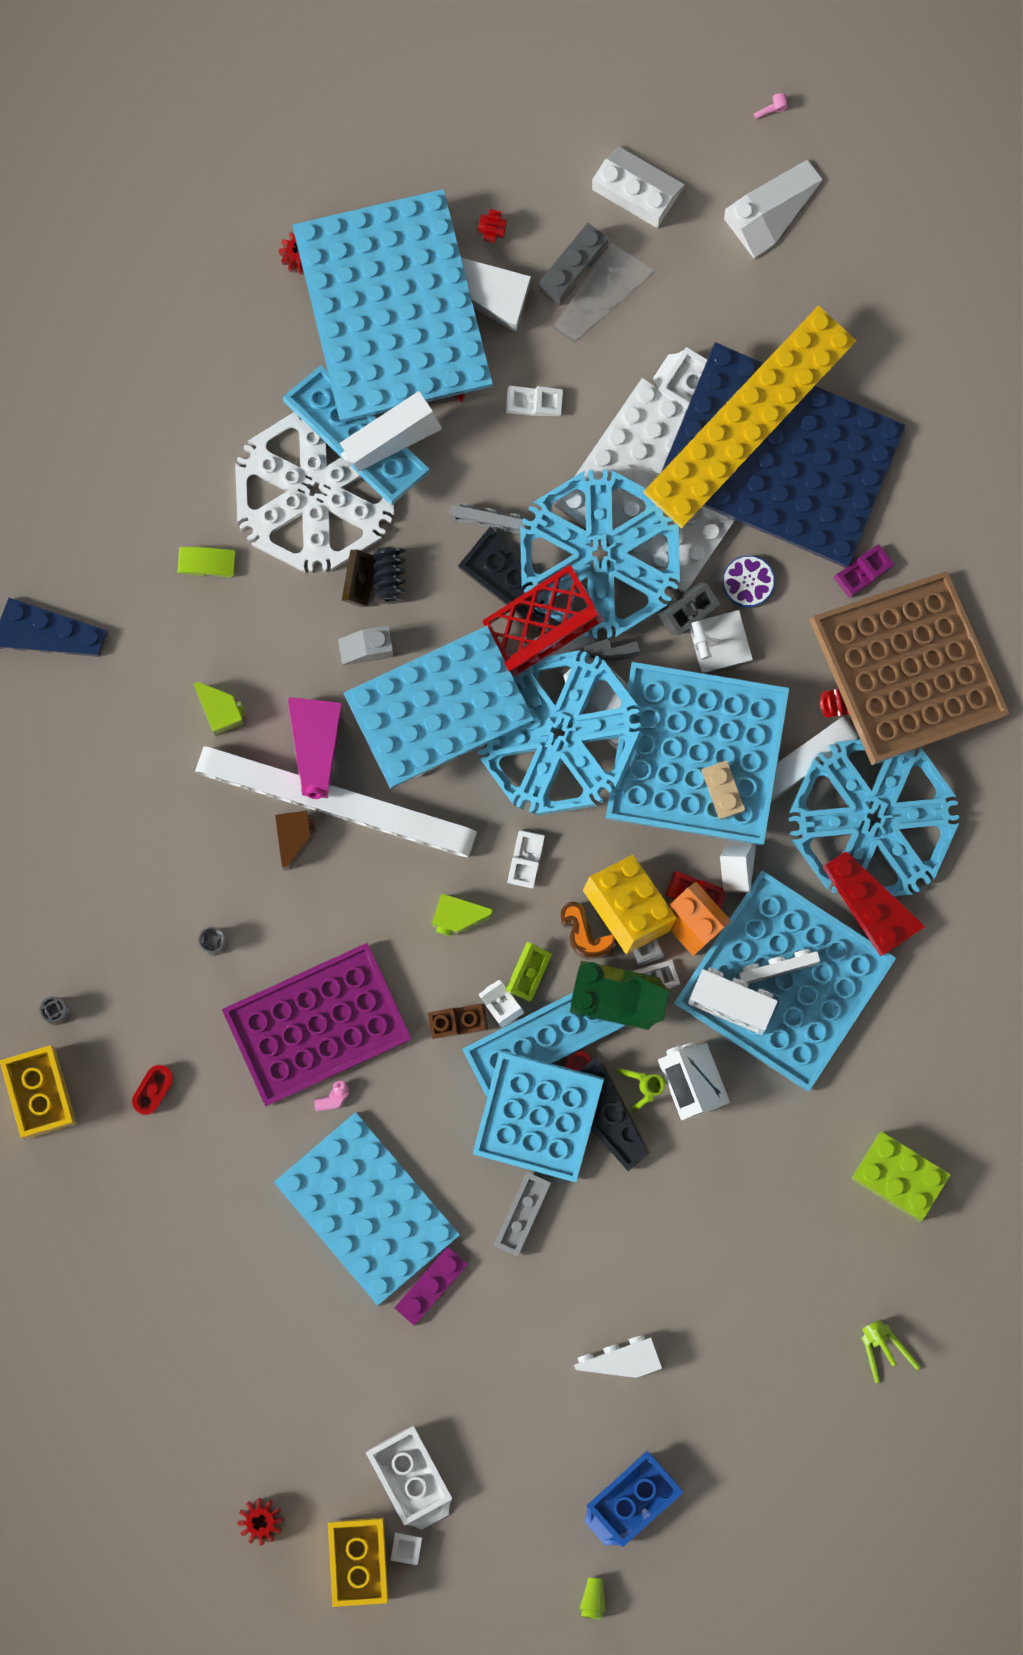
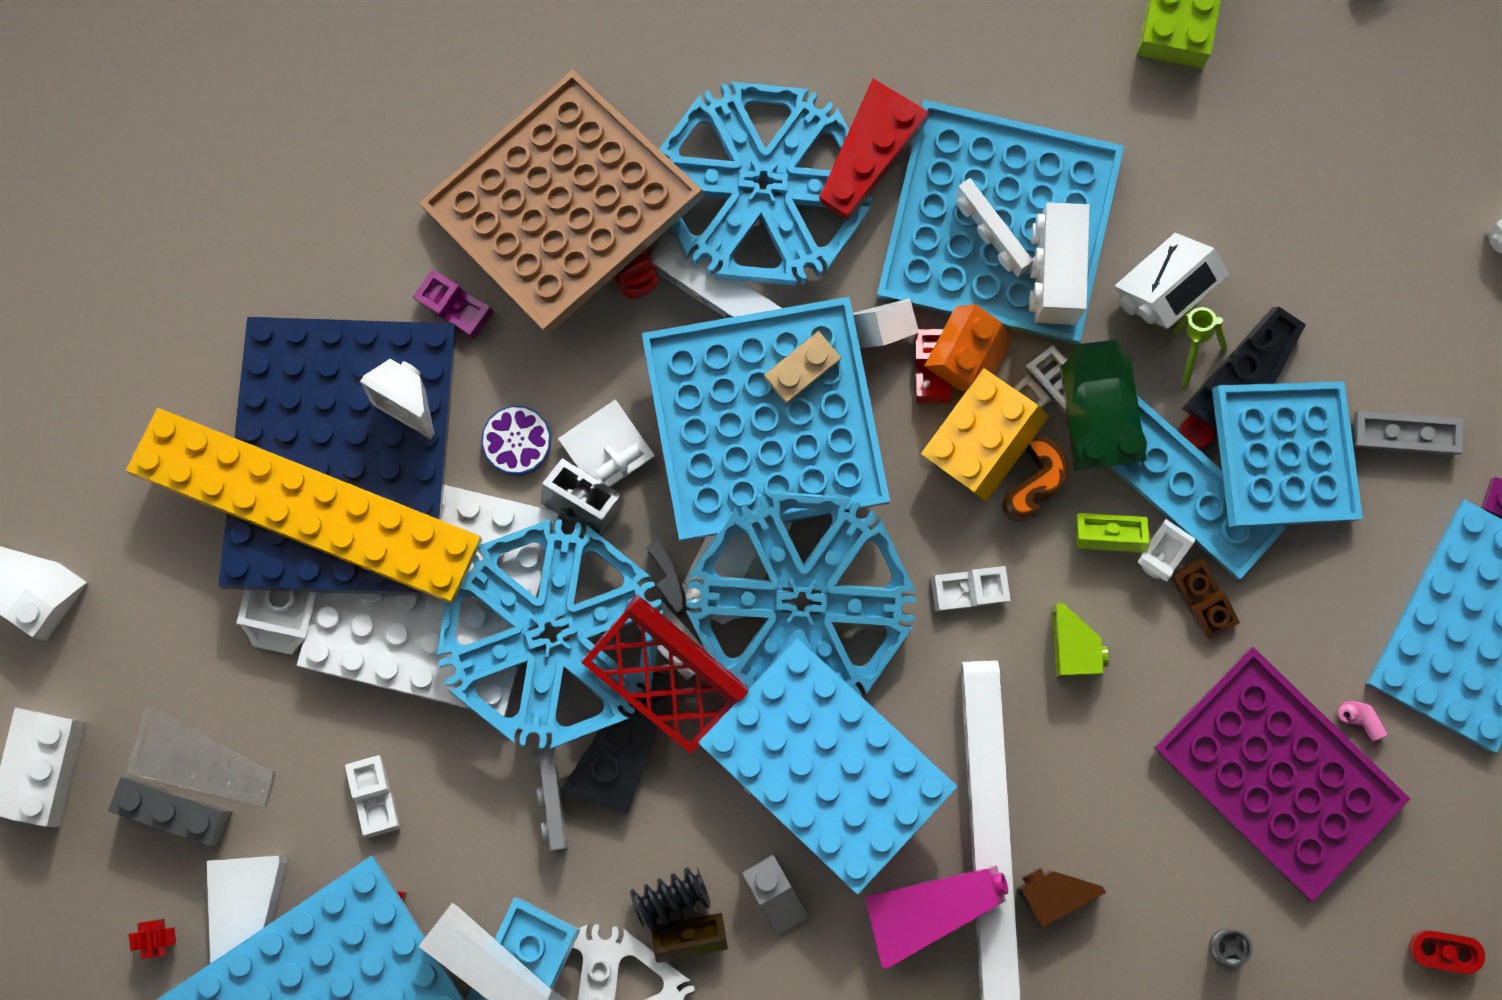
camera: 115 degrees left, 0 degrees up
(804, 508) = (400, 394): none -> white slope

